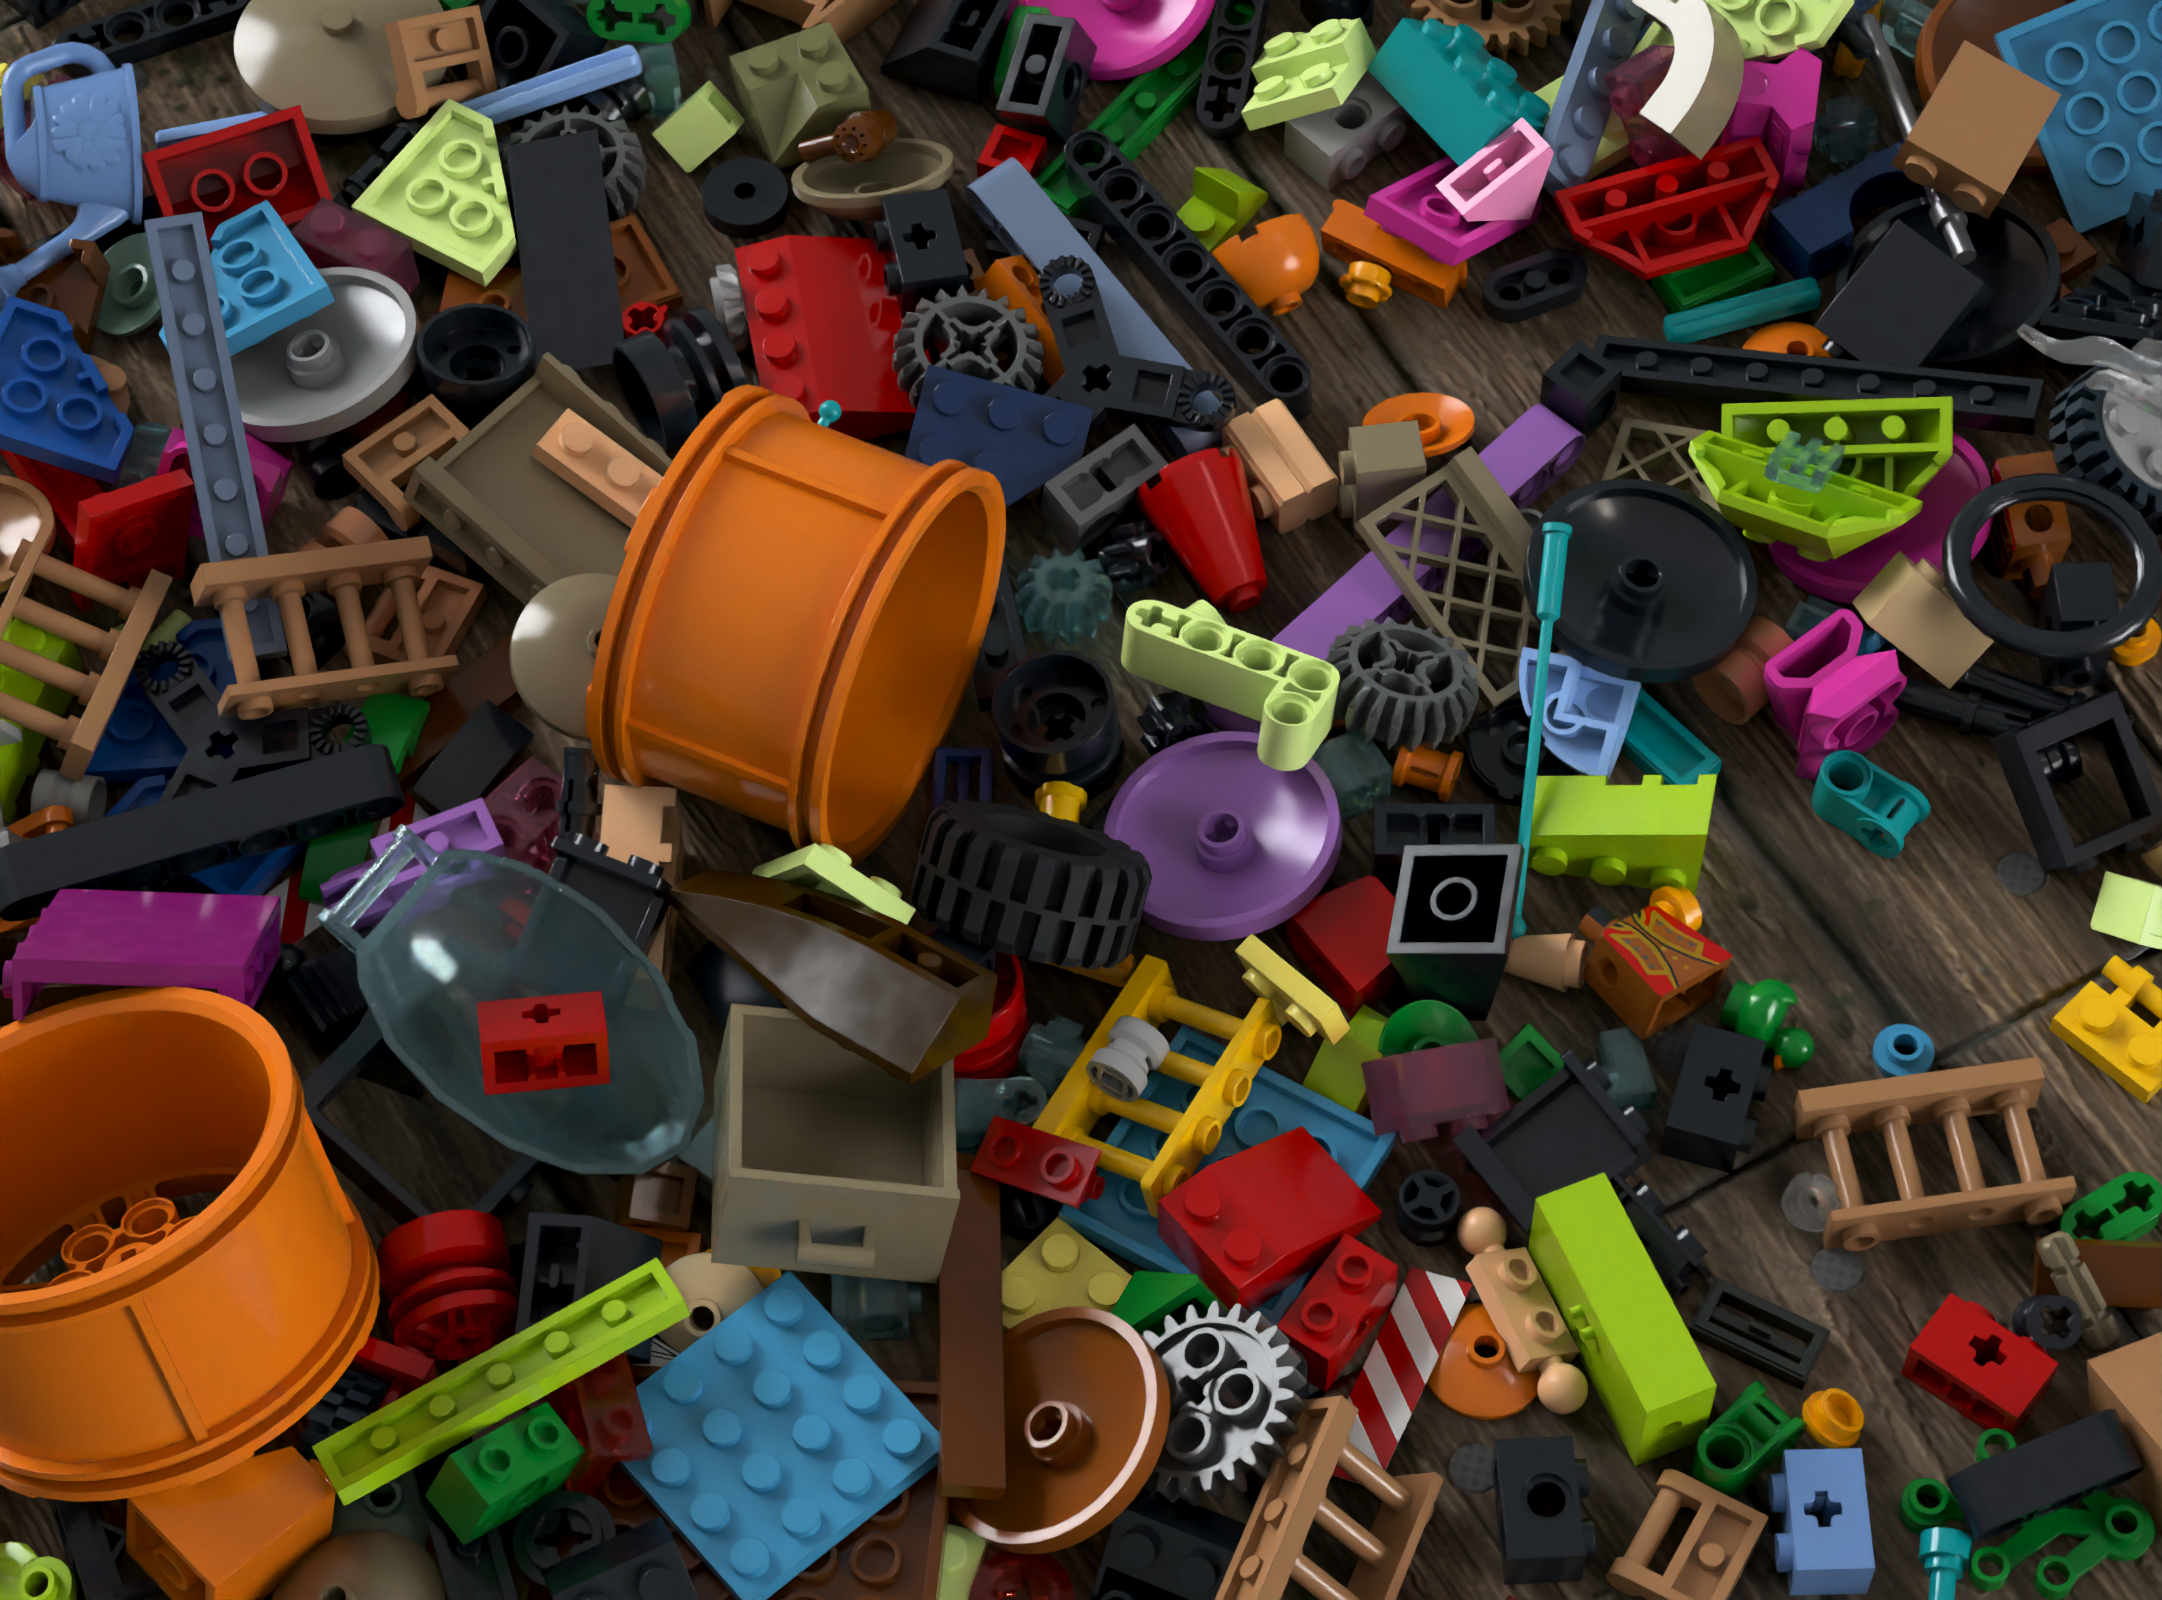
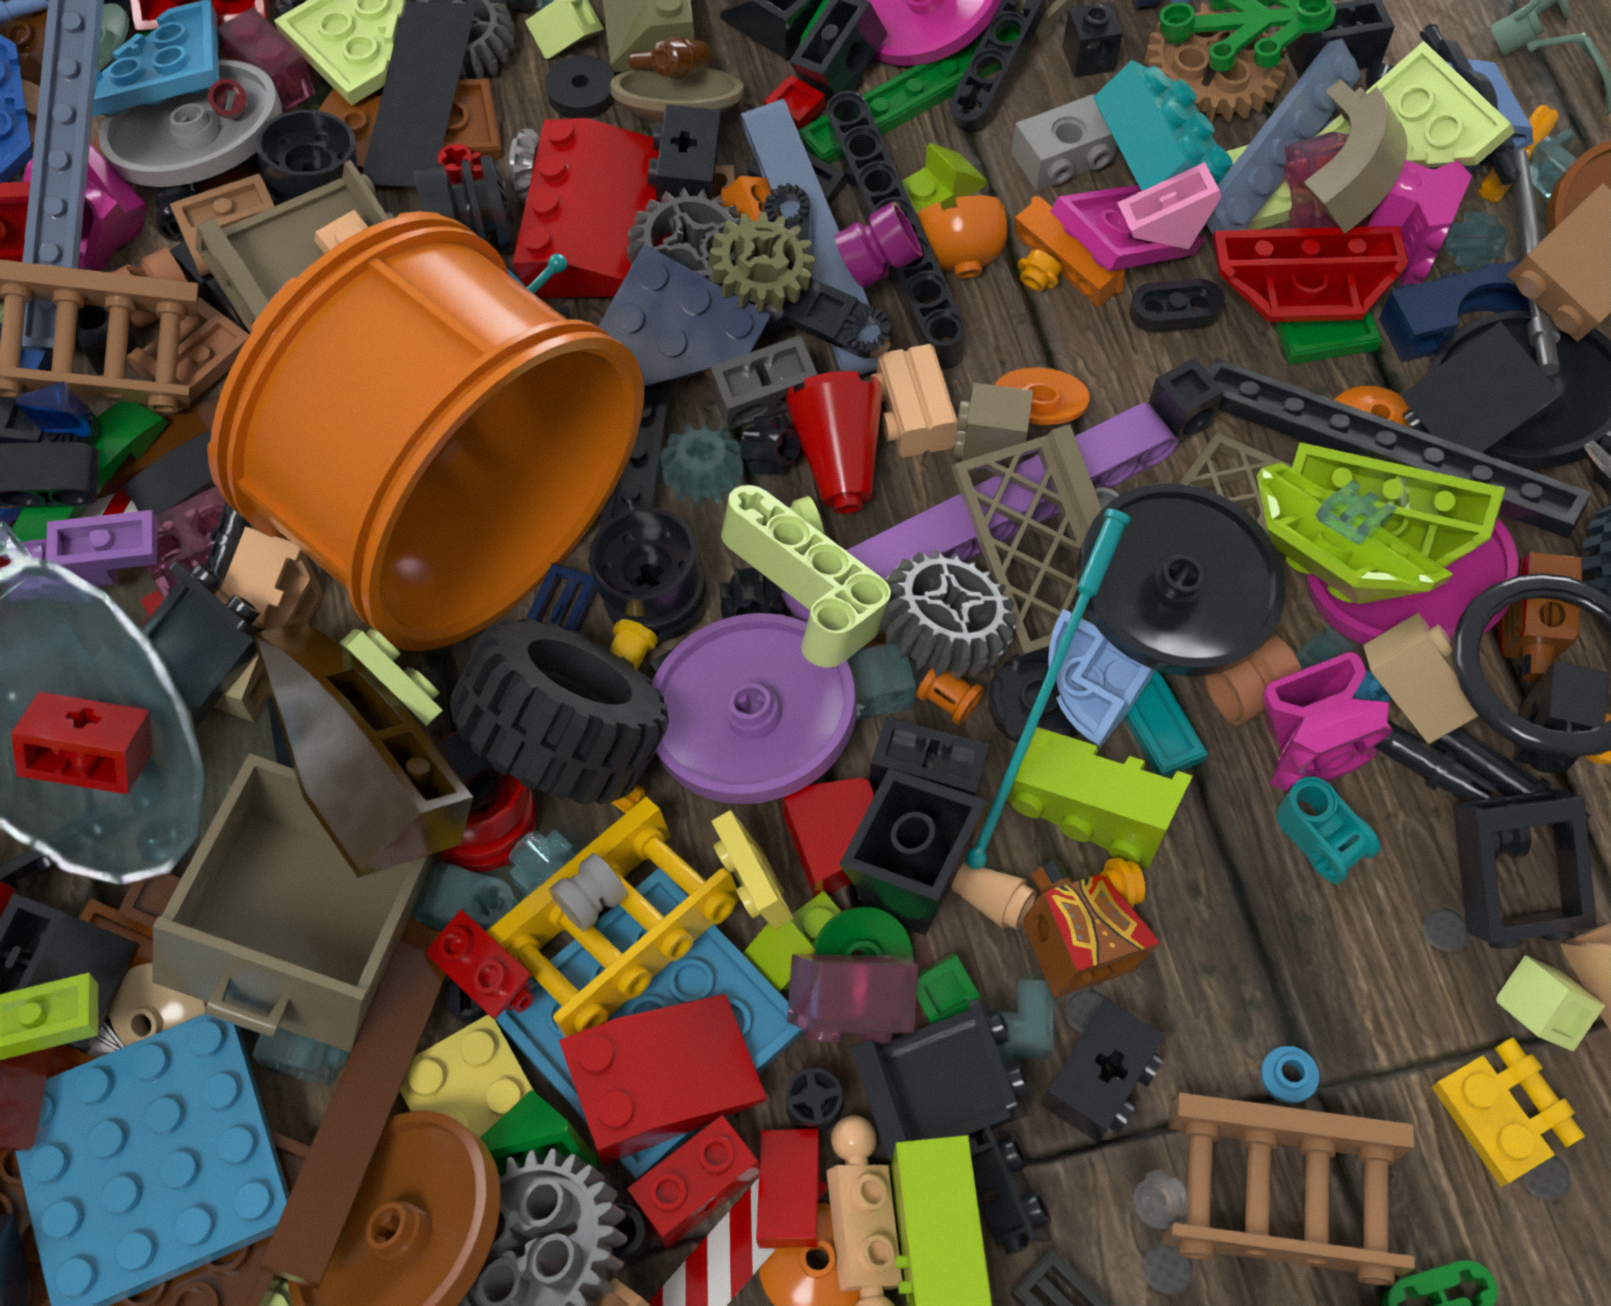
camera: 15 degrees right, 5 degrees up
(331, 717) = (56, 410): none -> clear blue slope
(363, 315) = (218, 98): none -> dark red hinge
(1066, 352) = (761, 261): none -> olive gear
(1186, 301) = (881, 243): none -> magenta wheel
(1308, 71) = (1046, 89): yellowish green plate -> none
(1434, 1293) = (788, 1189): none -> red tile
(1742, 311) = (1344, 368): teal axle -> none
(1760, 1013) = (1166, 1003): green animal -> none

